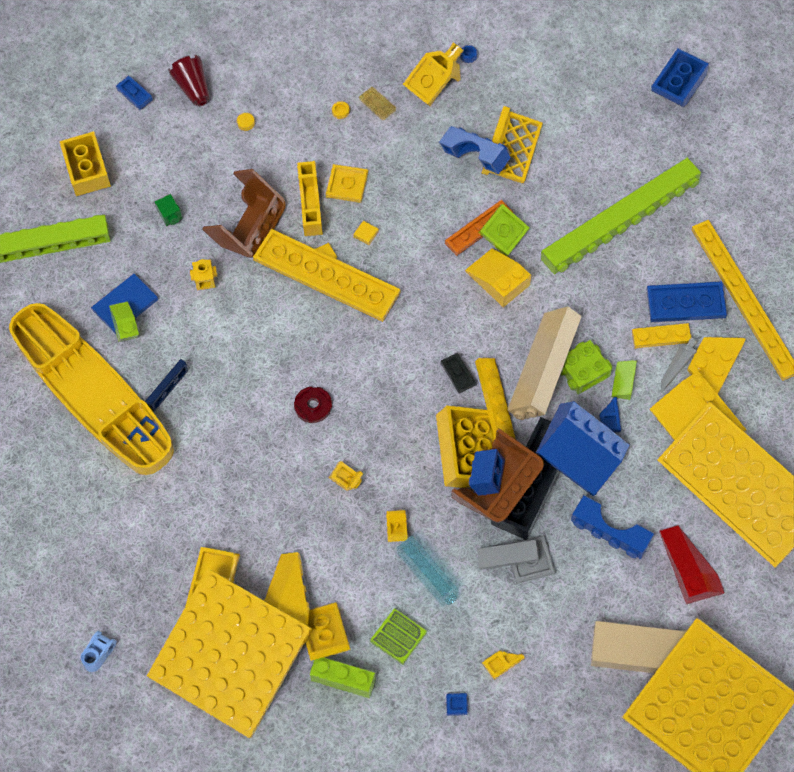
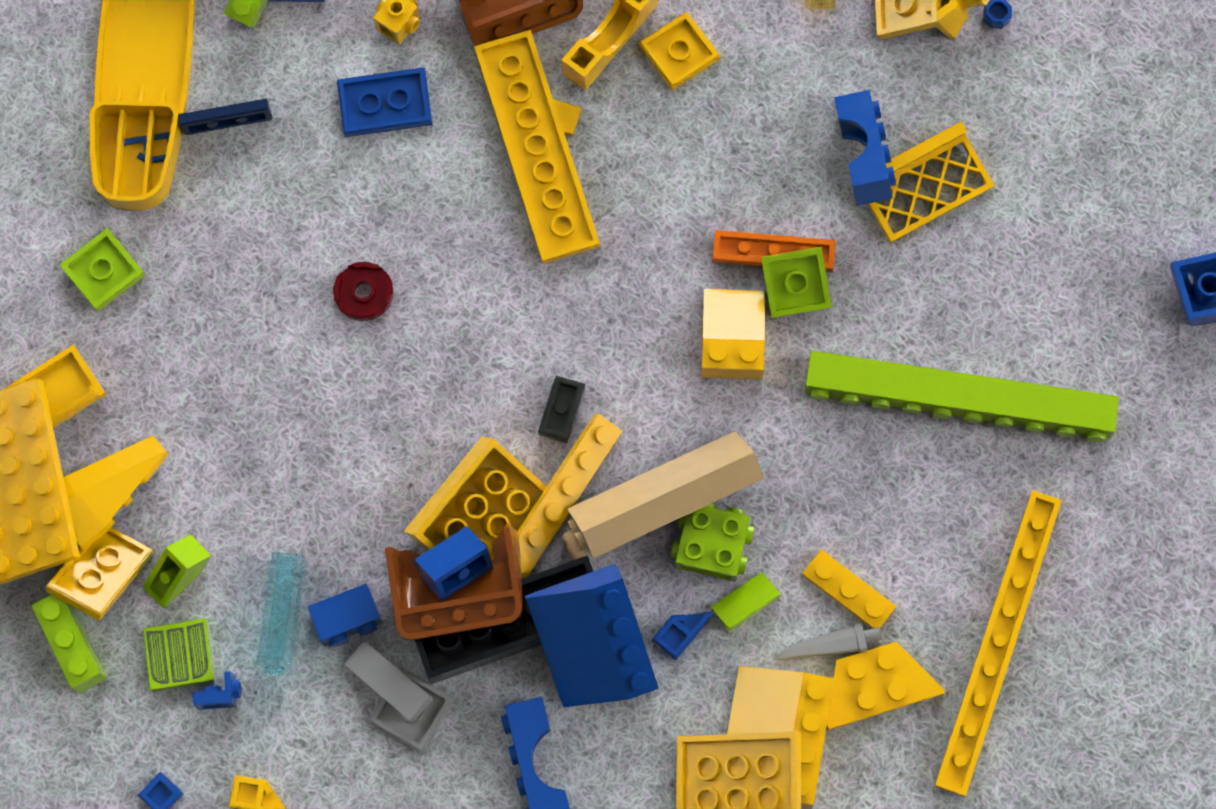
camera: 45 degrees right, 10 degrees up
(178, 503) = (102, 269): none -> lime plate
(234, 317) = (384, 102): none -> blue tile
(345, 476) = (308, 413): yellow bracket -> none
(358, 600) = (176, 569): none -> lime slope
(366, 232) = (637, 134): yellow tile -> none
(396, 526) = (302, 527): yellow bracket -> none
(436, 637) = (214, 698): none -> blue bracket
(457, 546) = (345, 616): none -> blue brick
(527, 423) = (572, 545): none -> tan tile
(686, 302) = (922, 577): blue plate -> none

